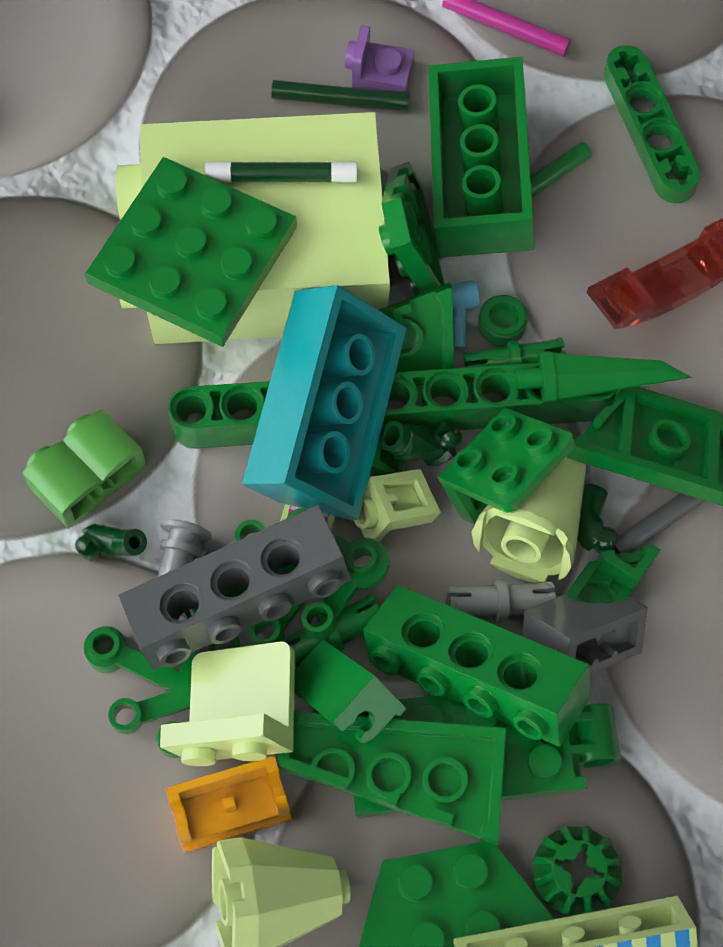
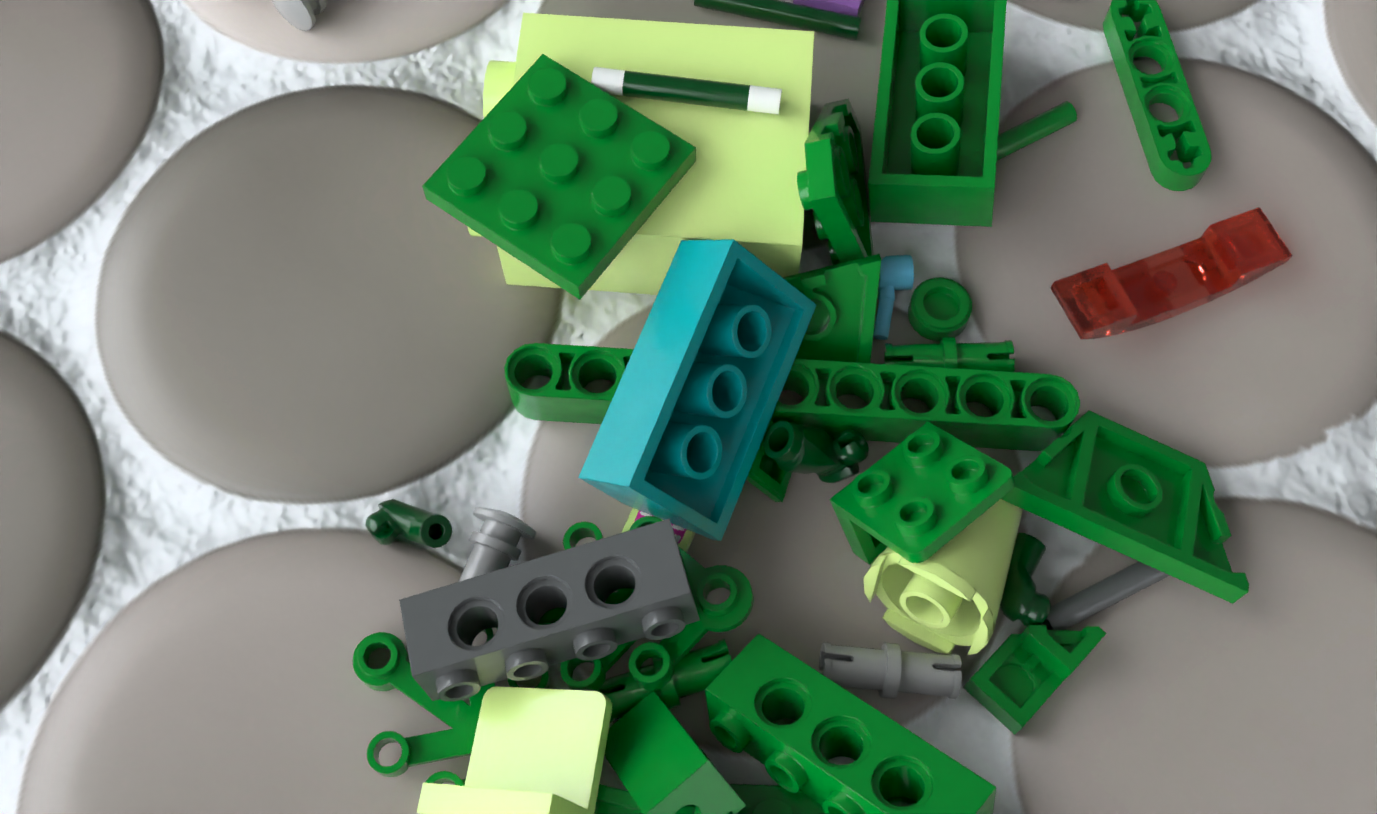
camera: 10 degrees right, 0 degrees up
(83, 467) = (392, 426): bright green brick -> none
(396, 503) = (773, 525): yellowish green bracket -> none
(583, 375) = (1029, 393): green bar -> none
(588, 631) = (996, 732): dark grey arch -> none

